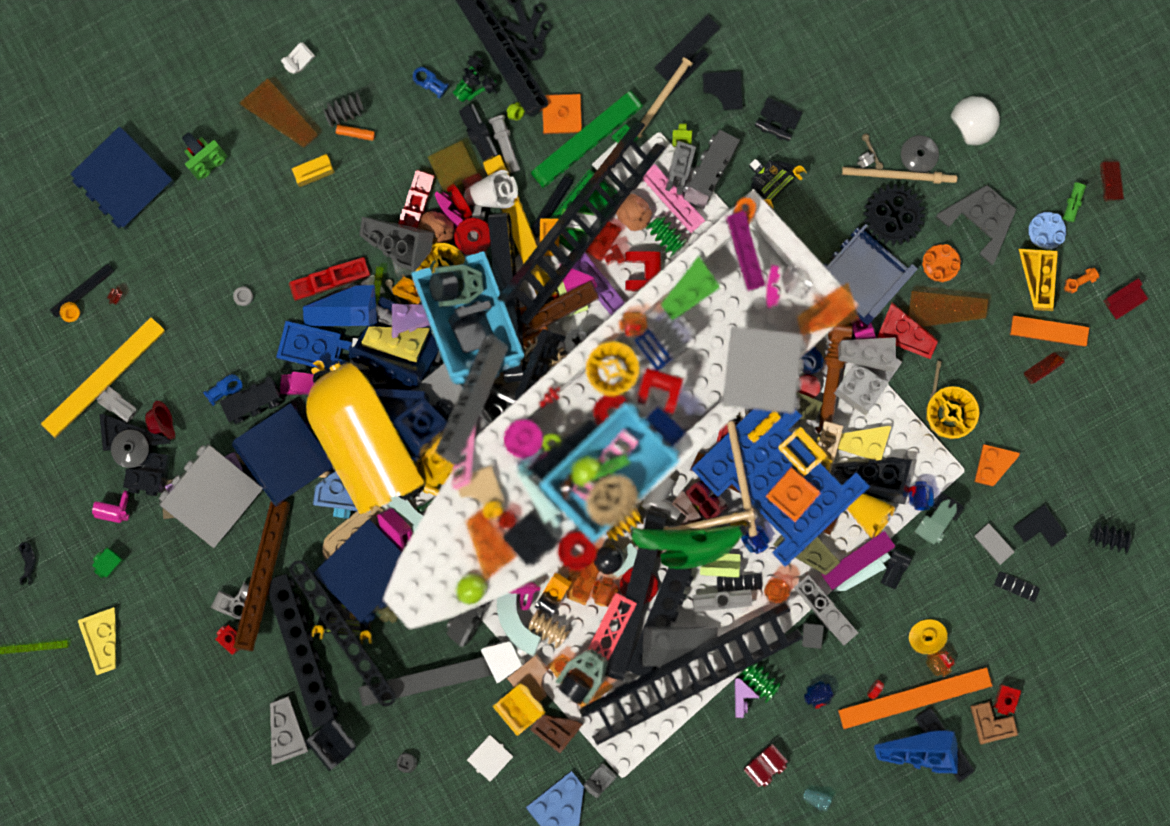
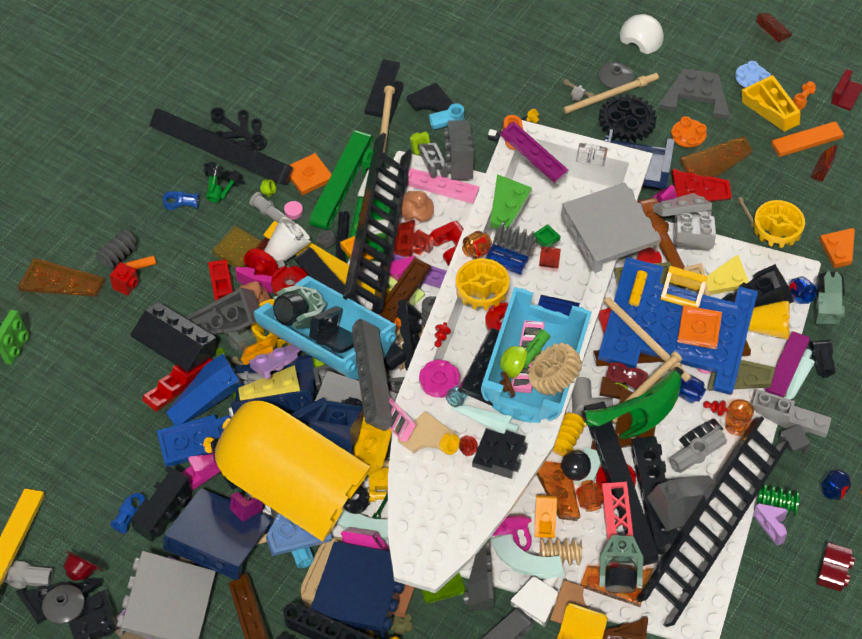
camera: 35 degrees left, 30 degrees down
(243, 296) = (104, 432): light grey tile -> none
(298, 59) = (54, 233): white bracket -> none
(312, 445) = (245, 507): none -> magenta panel
(313, 170) = (115, 308): yellow panel -> none
(334, 146) = (124, 279): none -> red brick
(344, 237) = (174, 337): none -> black slope
(471, 589) = (472, 522): lime hair -> none
(478, 132) = (245, 215): black piece -> none
(488, 545) = (466, 477): clear orange wing -> none
(525, 148) = (293, 210): none -> bright pink tile
(536, 199) = (326, 239): none -> dark grey tile
(547, 605) = (546, 530): black bush -> none
(548, 438) = (465, 363): lime plate -> none
(570, 561) = (548, 452): red tile -> none
(661, 381) = (537, 273): red connector -> none
(666, 235) = (453, 208): green piece -> none
(691, 369) = (549, 257): none -> clear red tile
(702, 346) = (547, 236): none -> green tile
(722, 121) = (440, 119): none -> medium azure piece
(724, 567) = (677, 426): yellowish green panel -> none
(767, 566) = (717, 407): none -> red hair
(771, 292) = (576, 169): dark pink slope -> none
(780, 114) = (488, 100): black plate -> none
(830, 312) = (635, 162): clear orange wing -> none
(1070, 213) = (757, 49): bright green pin -> none

